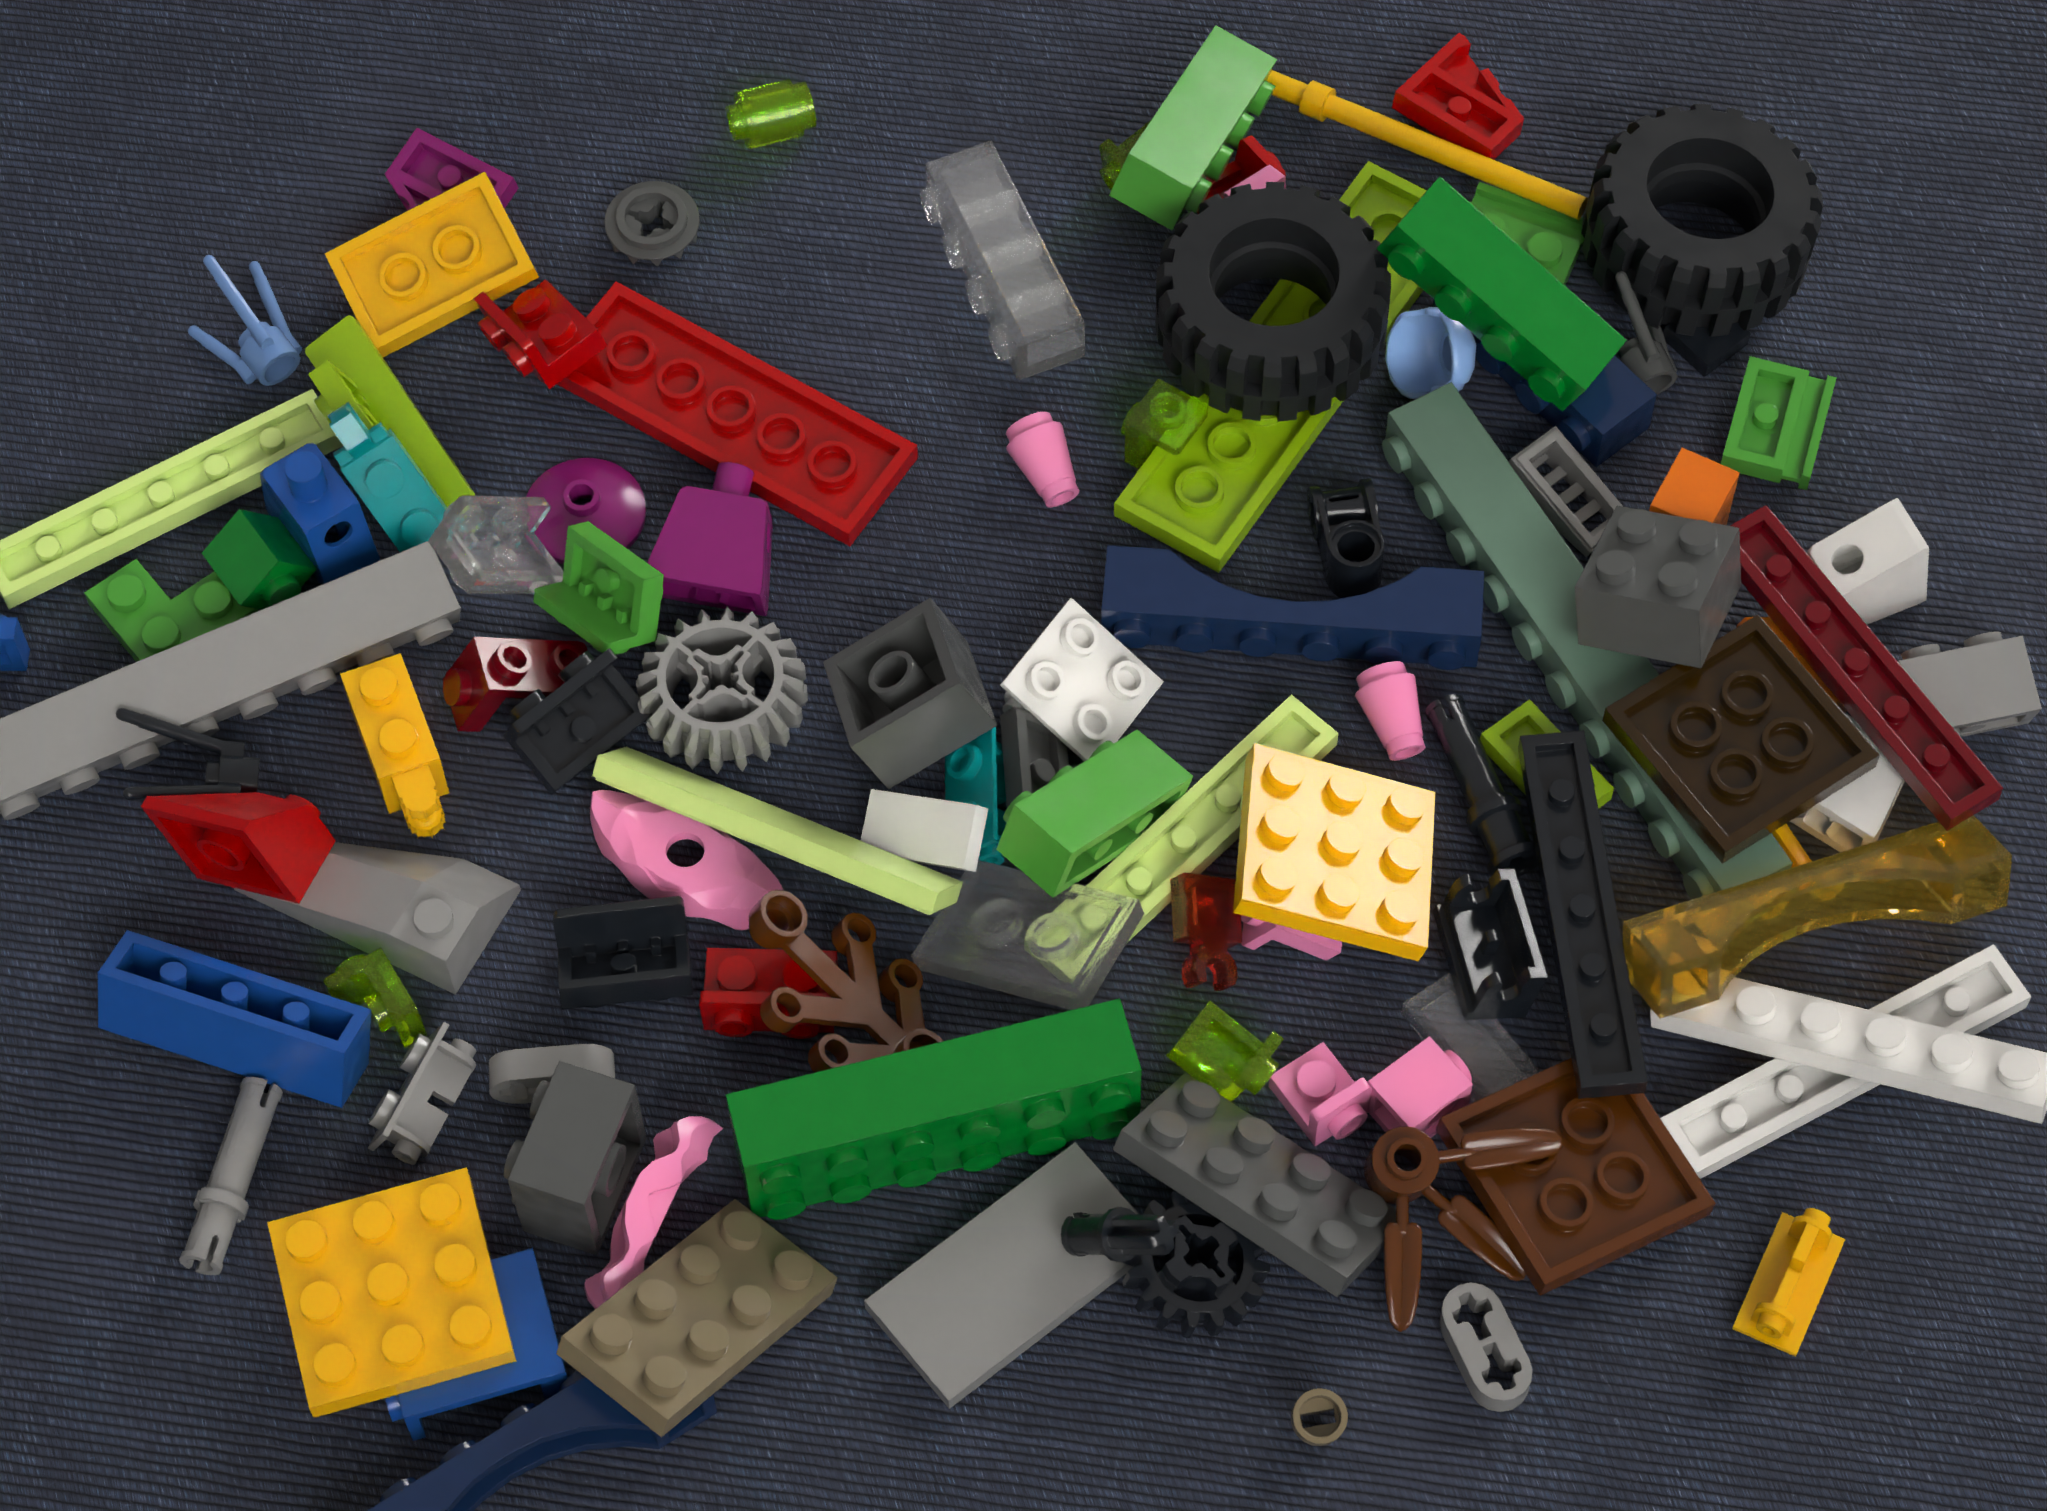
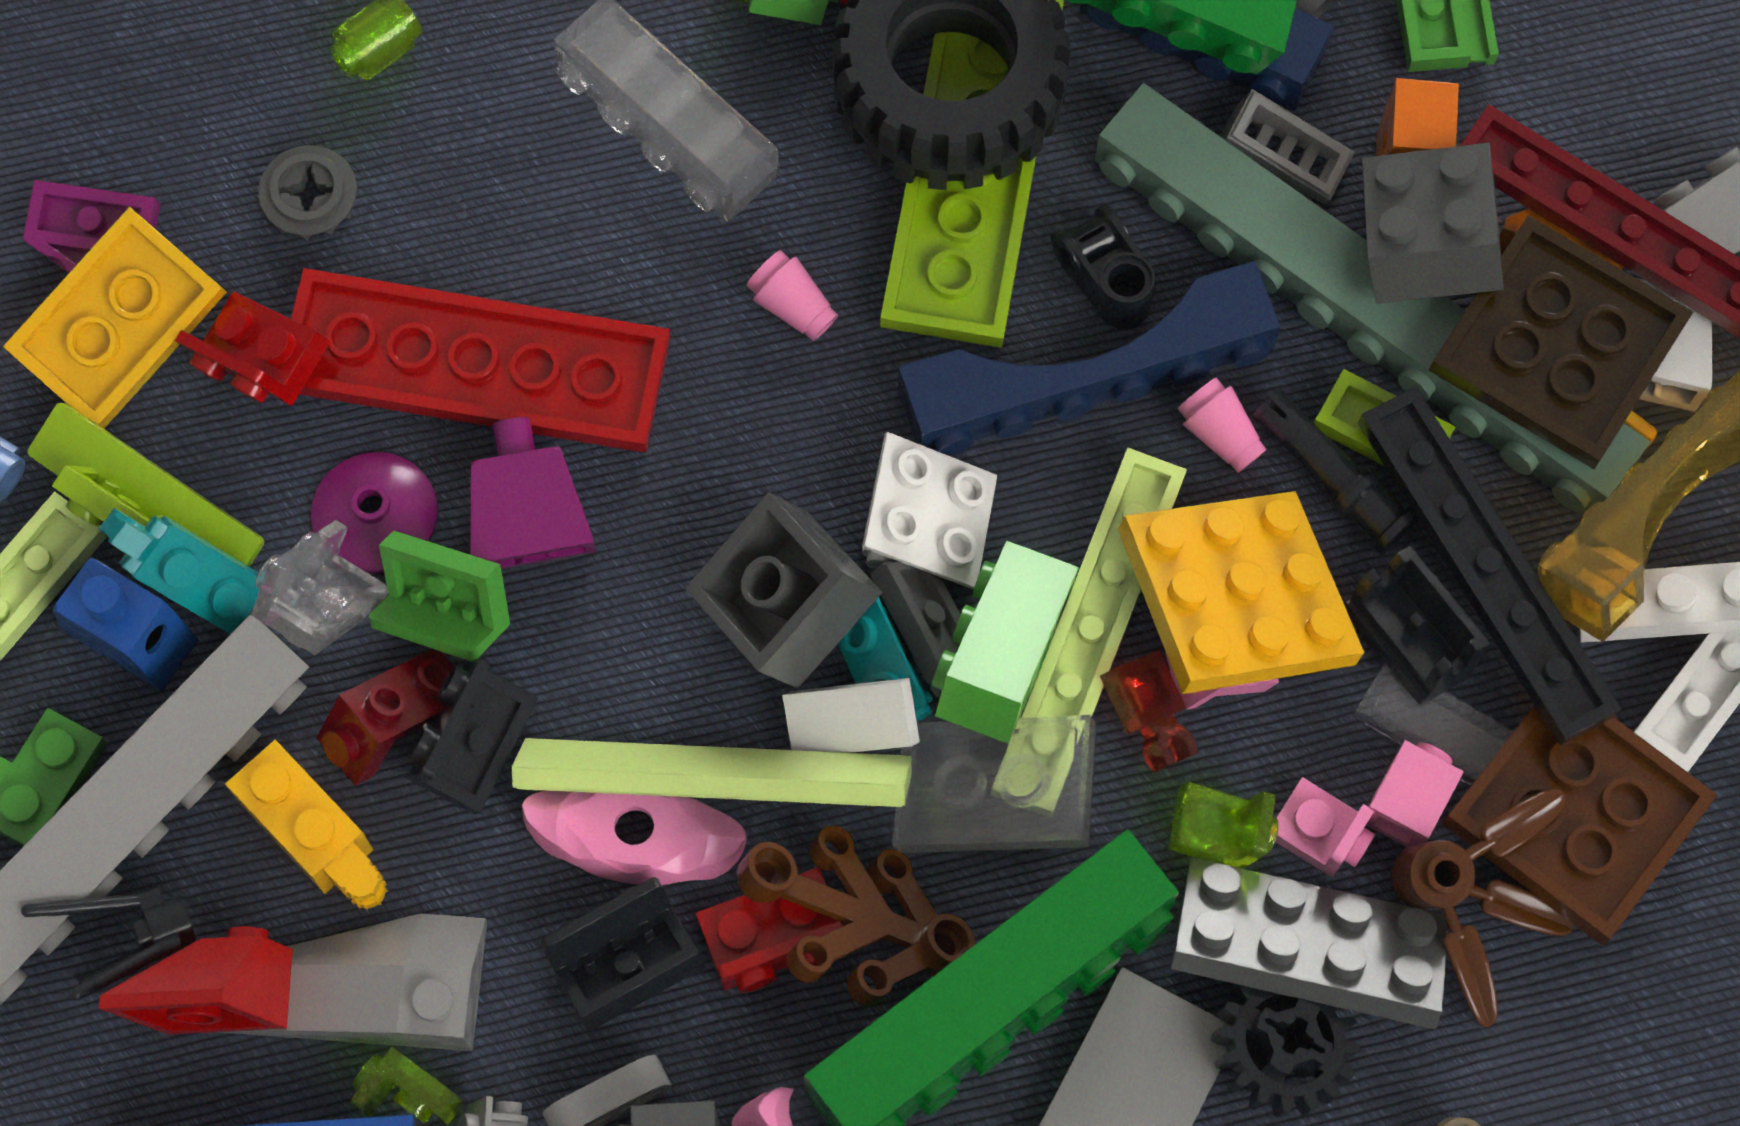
camera: 25 degrees left, 10 degrees up
(258, 560) = (86, 692): green brick -> none
(723, 713) = (619, 657): light grey gear -> none
(1118, 1234) = (1217, 1053): black axle -> none
(1161, 419) = (895, 219): clear neon green bracket -> none
(1428, 352) = (1108, 60): light blue hair -> none
(1499, 1340) = (1582, 1001): light grey beam -> none
(1876, 562) = (1601, 115): white torso -> none

